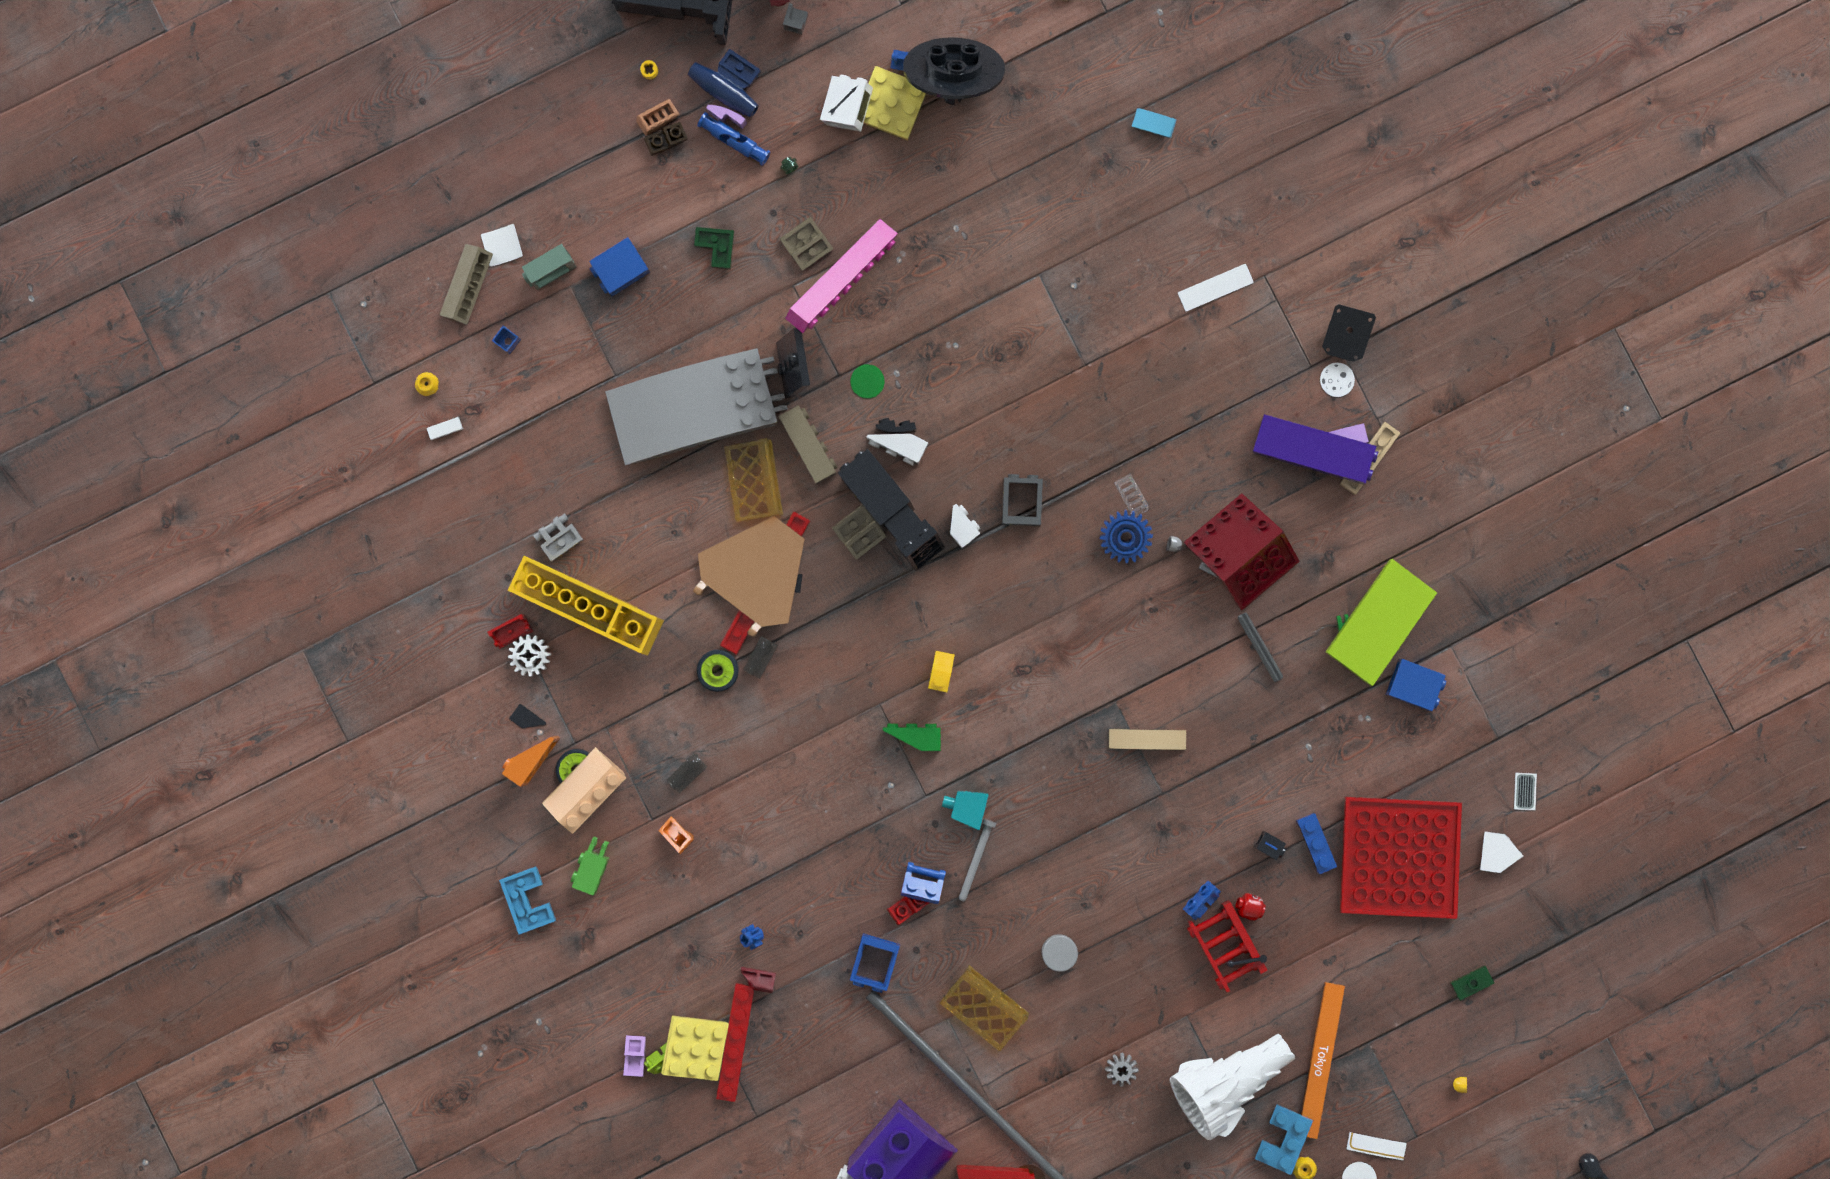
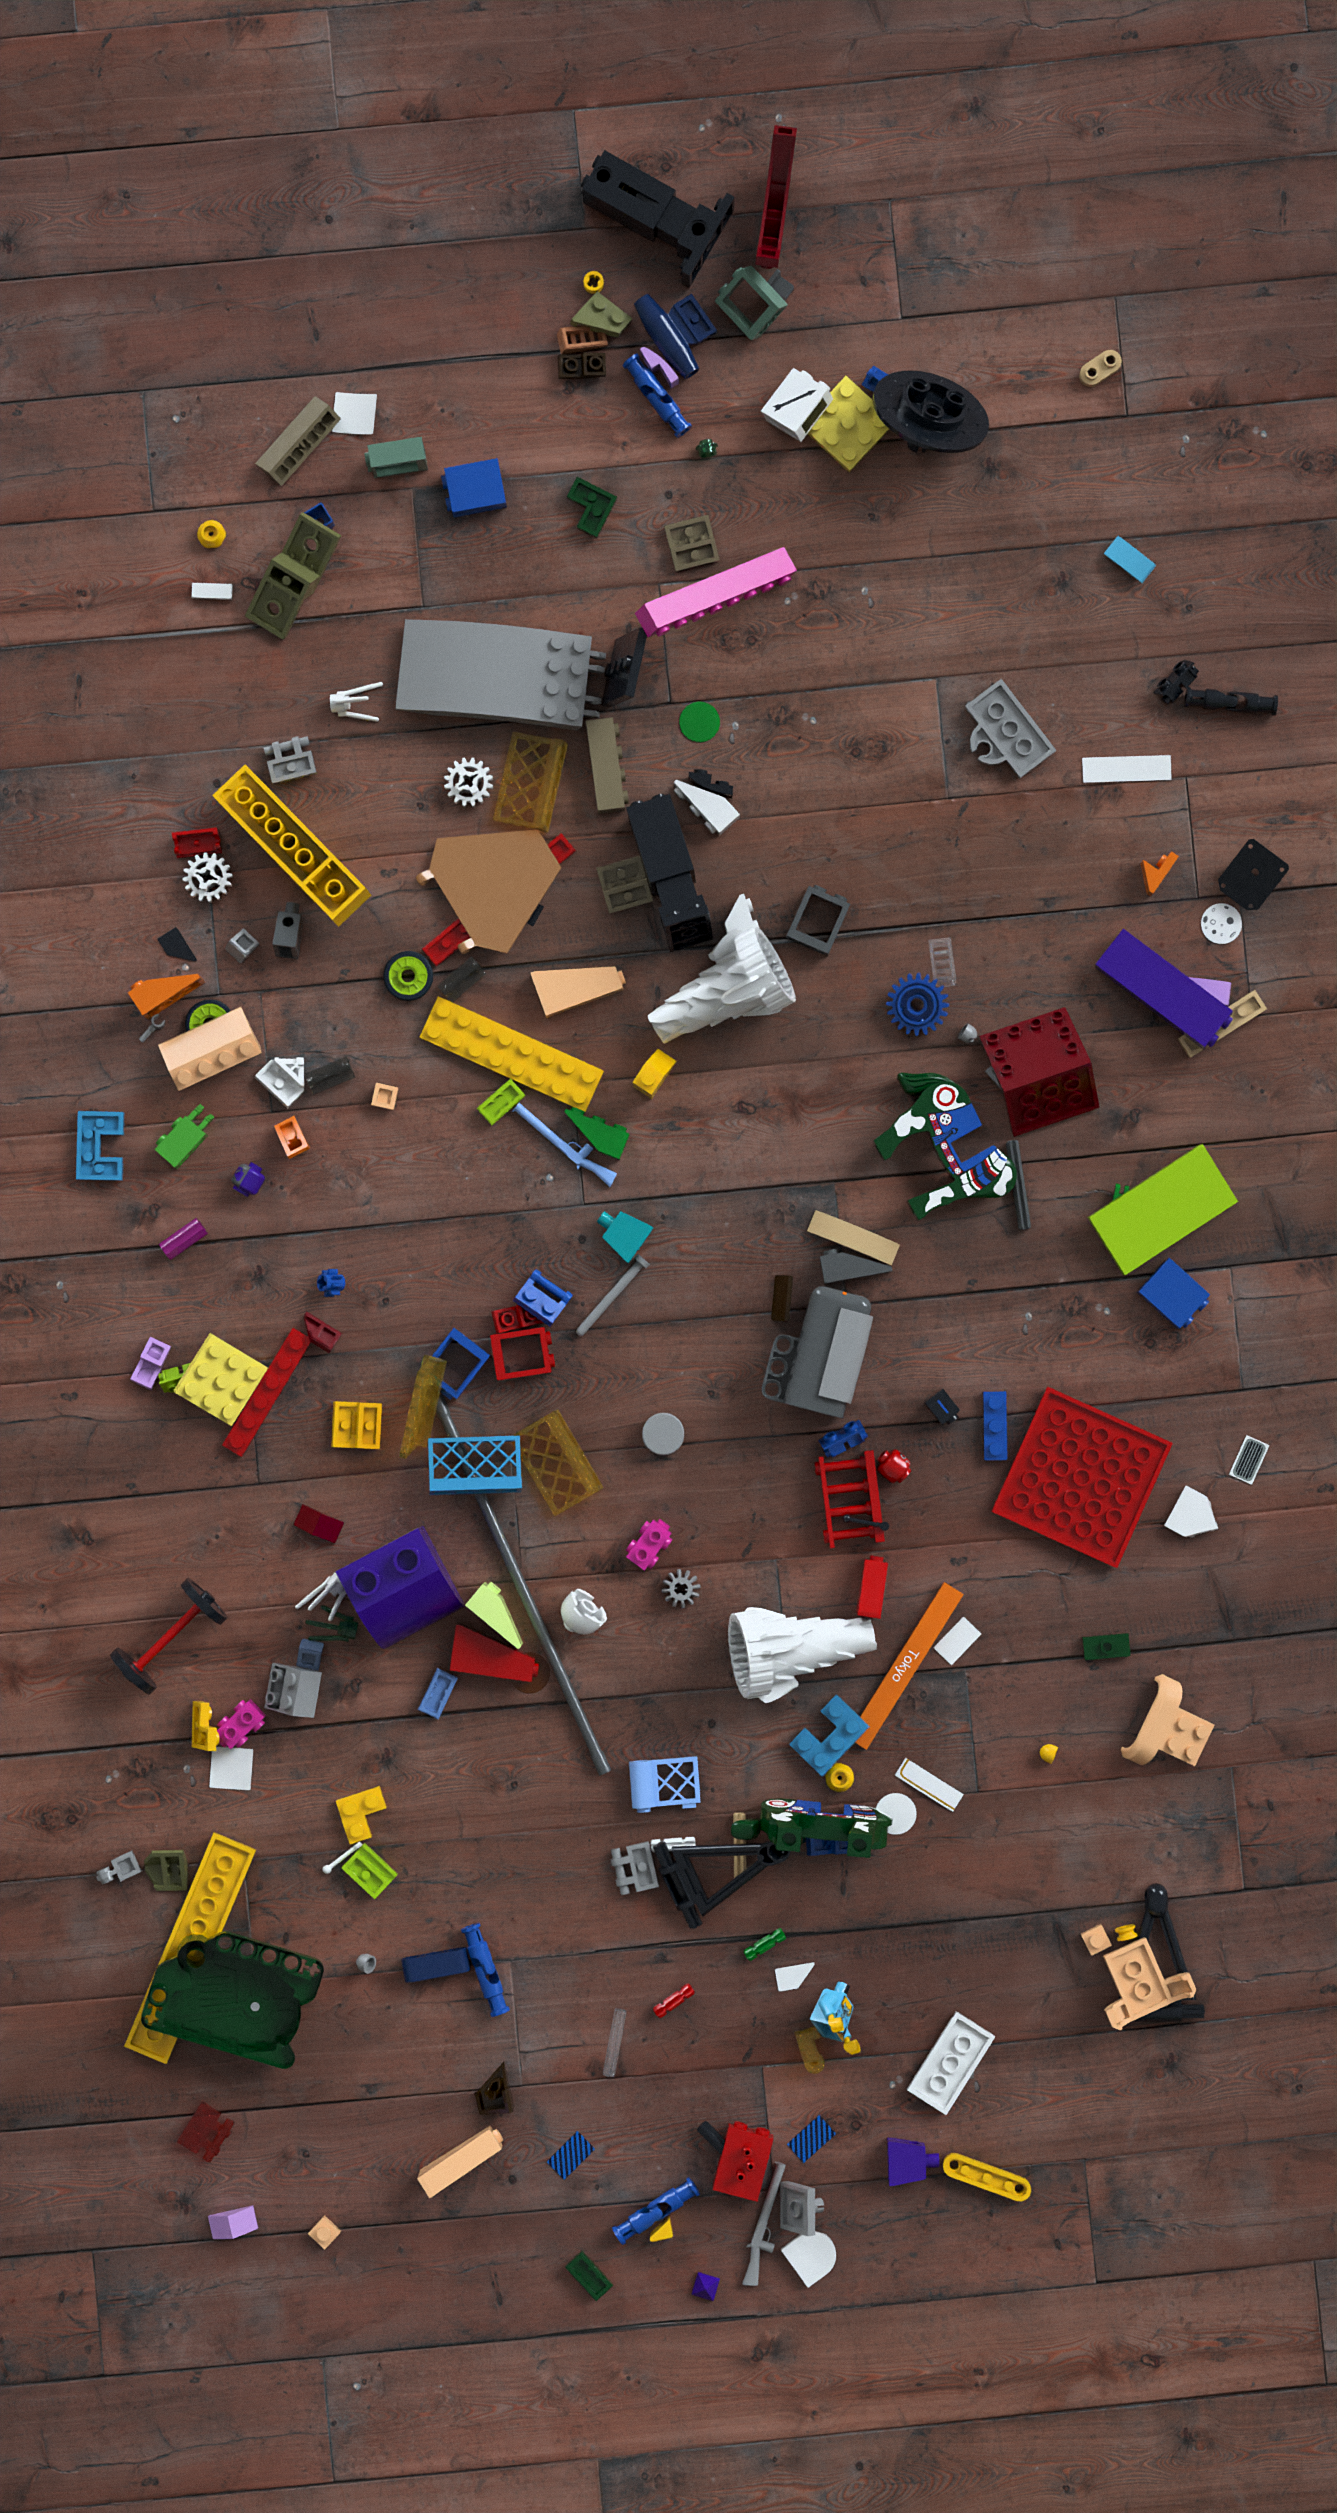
camera: 20 degrees right, 0 degrees up
(503, 392) = (293, 575): none -> olive bracket
(532, 791) = (152, 1028): none -> light grey hand
(577, 698) = (241, 945): none -> light grey slope
(580, 475) = (341, 702): none -> white plant
(610, 681) = (286, 938): none -> dark grey torso
(621, 948) = (183, 1238): none -> magenta axle
(651, 790) = (283, 1079): none -> white slope
(654, 881) = (248, 1179): none -> dark purple head
(666, 94) = (602, 316): none -> olive wing
(698, 495) = (463, 774): none -> white gear
(736, 773) = (384, 1096): none -> light nougat plate
(779, 20) = (761, 286): none -> sand green window
(815, 1040) = (356, 1425): none -> yellow slope
(816, 1130) = (318, 1523): none -> dark red slope
(822, 700) = (511, 1054): none -> yellow plate
(829, 741) = (501, 1102): none -> lime plate
(848, 631) = (575, 987): none -> light nougat slope
(862, 1006) = (423, 1404): none -> clear yellow fence
(910, 950) = (549, 1361): none -> red window
(929, 1052) = (480, 1484): none -> dark azure fence
(934, 766) = (579, 1158): none -> light blue piece
(980, 1146) = (493, 1610): none -> yellowish green slope
(982, 574) = (743, 982): none -> white cone
(1051, 1120) = (581, 1614): none -> white cylinder
(1084, 1038) = (653, 1538): none -> dark pink brick
(1110, 809) = (782, 1298): none -> dark brown slope
(1111, 294) = (1007, 731): none -> light grey plate
(1150, 765) = (844, 1266): none -> dark grey slope
(1164, 844) = (827, 1357): none -> dark grey piece
(1184, 615) = (947, 1116): none -> animal
(1230, 195) = (1182, 673): none -> black hinge
(1264, 206) = (1213, 699): none -> black piece
(1271, 364) = (1154, 876): none -> orange slope
(1272, 1011) = (872, 1587): none -> red slope
(1353, 1024) = (957, 1640): none -> white sticker
(1548, 1028) = (1169, 1728): none -> light nougat piece

